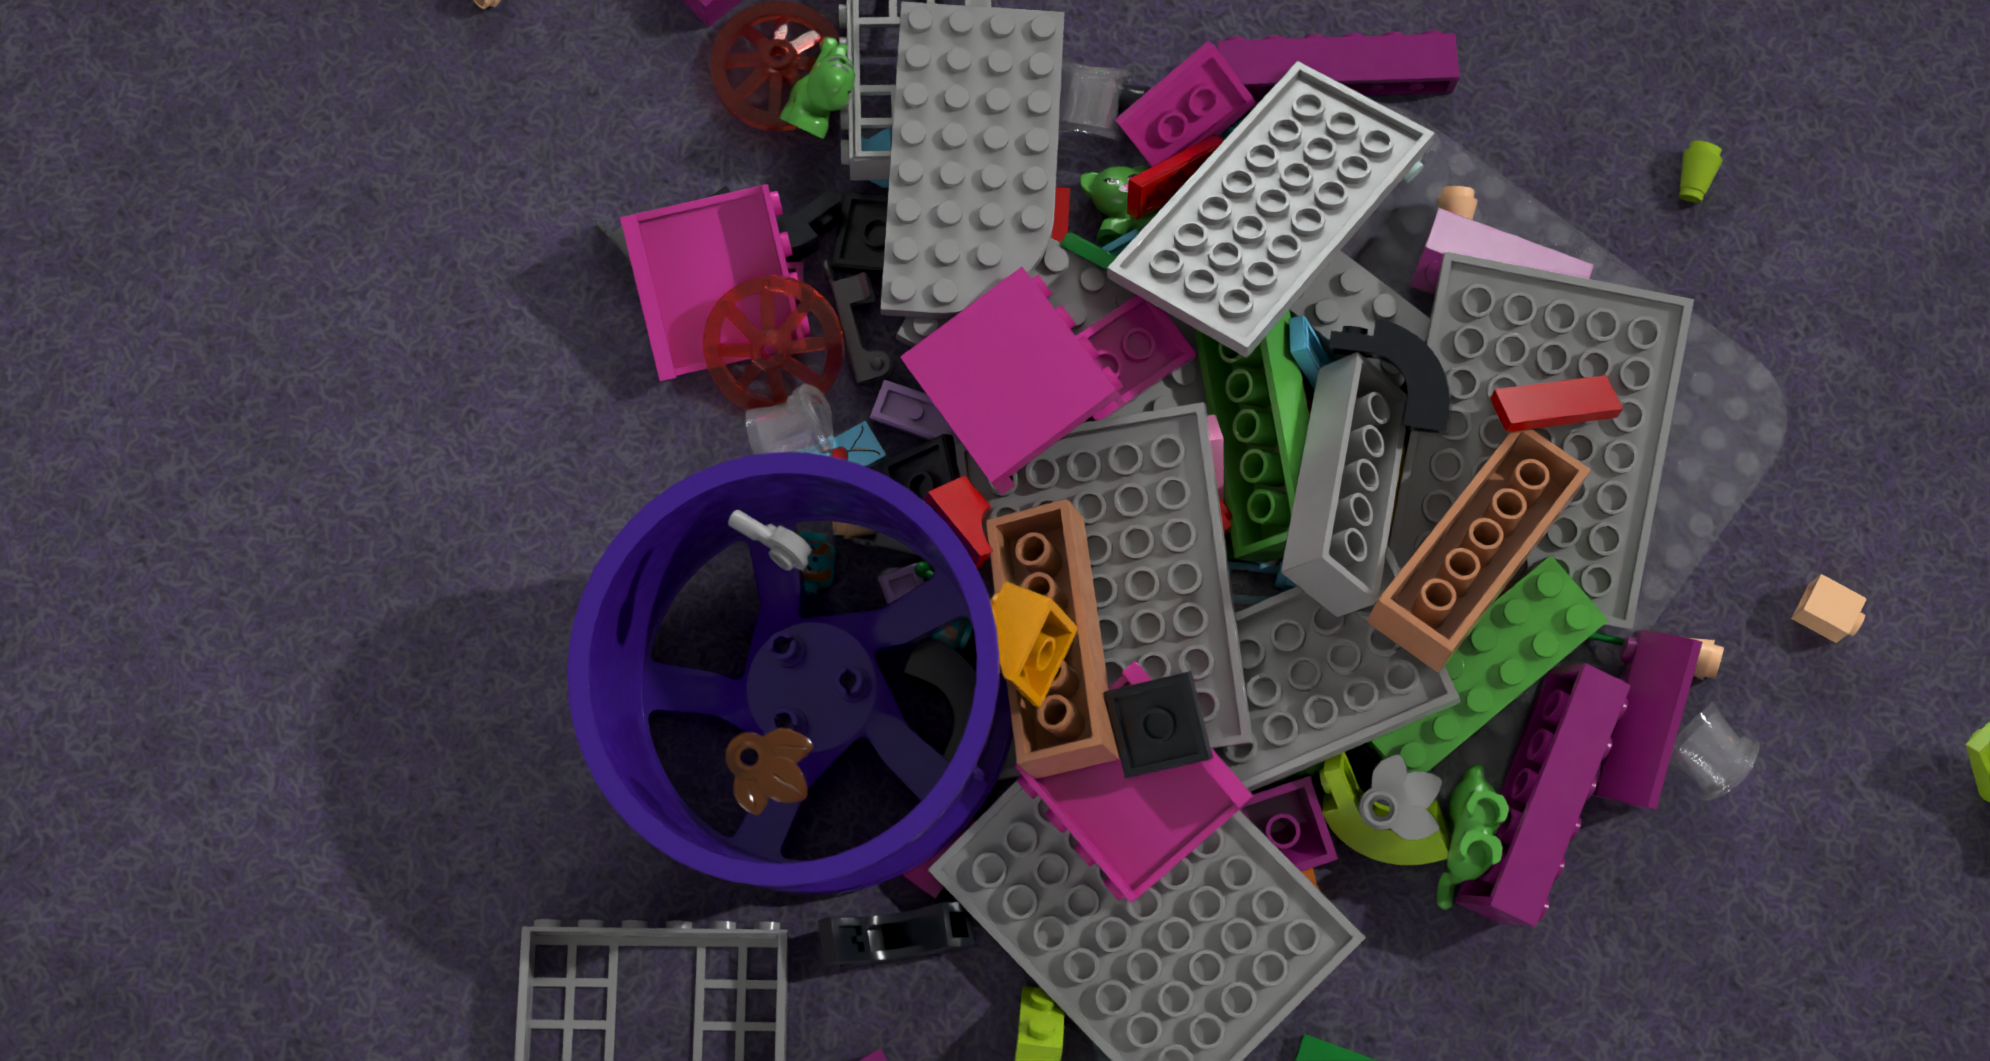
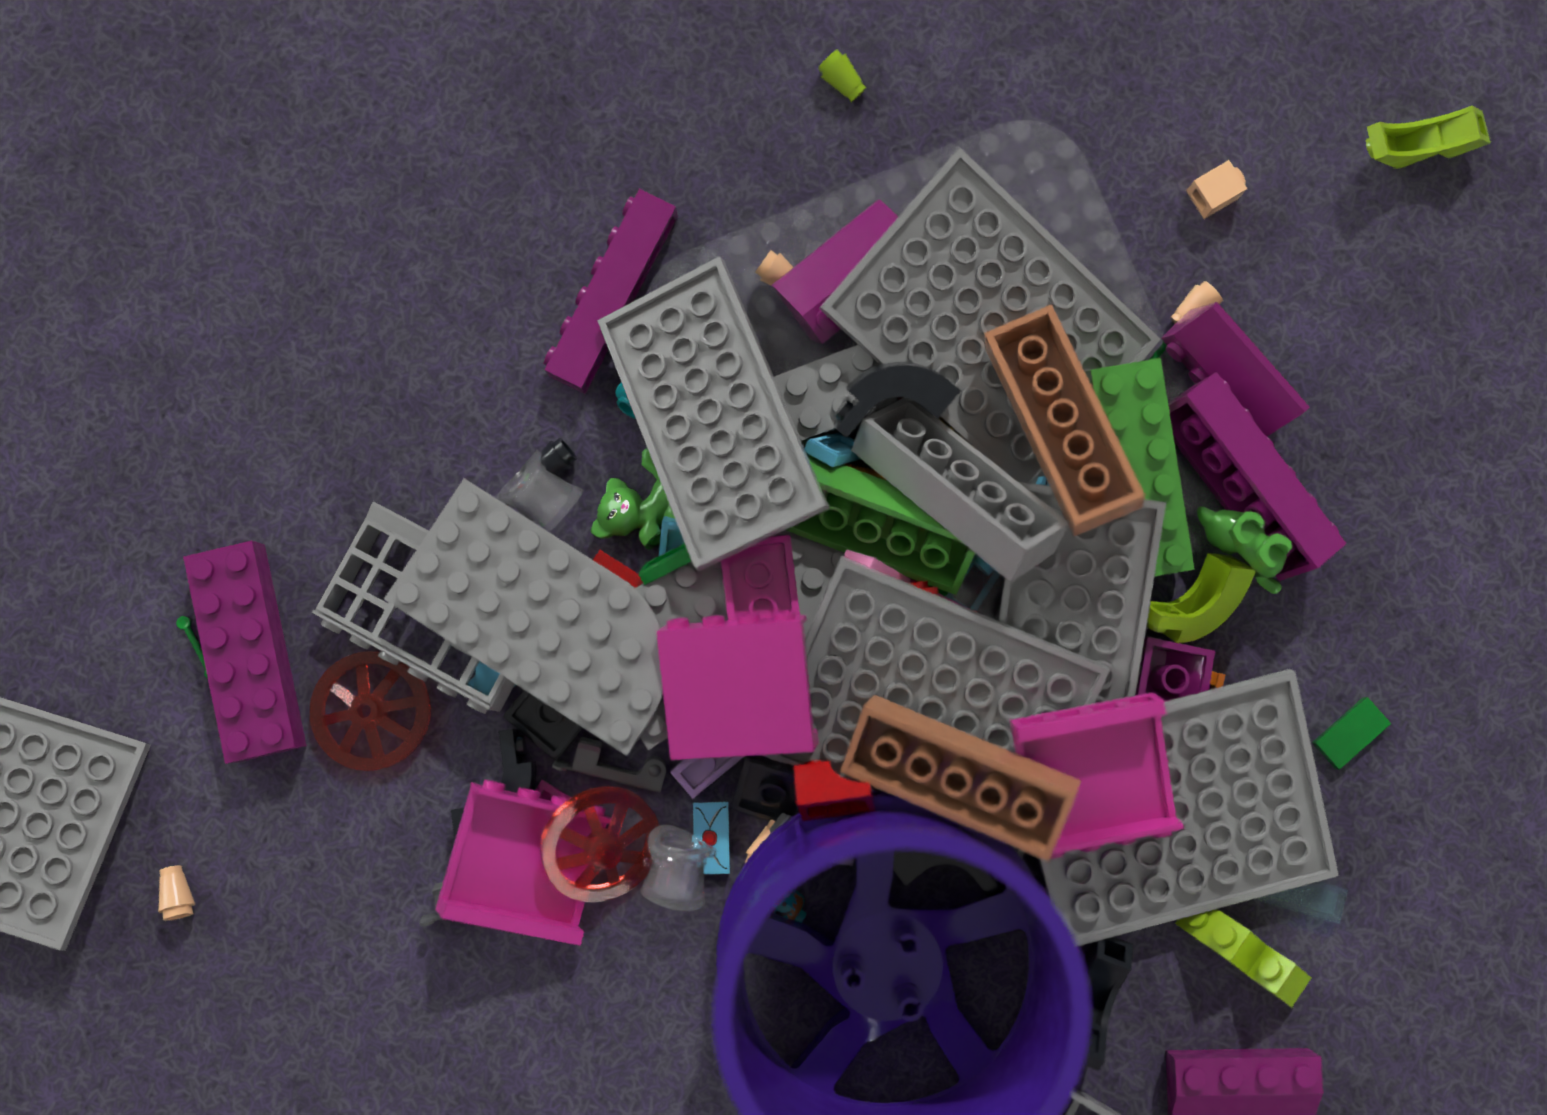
camera: 50 degrees left, 10 degrees up
(773, 773) = (980, 1066): reddish brown plate -> none
(787, 547) = (819, 969): light grey plate -> none
(823, 90) = (417, 698): bright green animal -> none
(1030, 639) = (970, 807): light orange slope -> none
(1158, 724) = (1074, 738): black tile -> none
(1161, 182) = (635, 467): red tile -> none
(1186, 106) = (588, 427): dark pink plate -> none
(1408, 798) = (1204, 578): light grey plate -> none
(1556, 403) = (985, 298): red tile -> none
(1713, 753) = (1285, 336): clear hat -> none

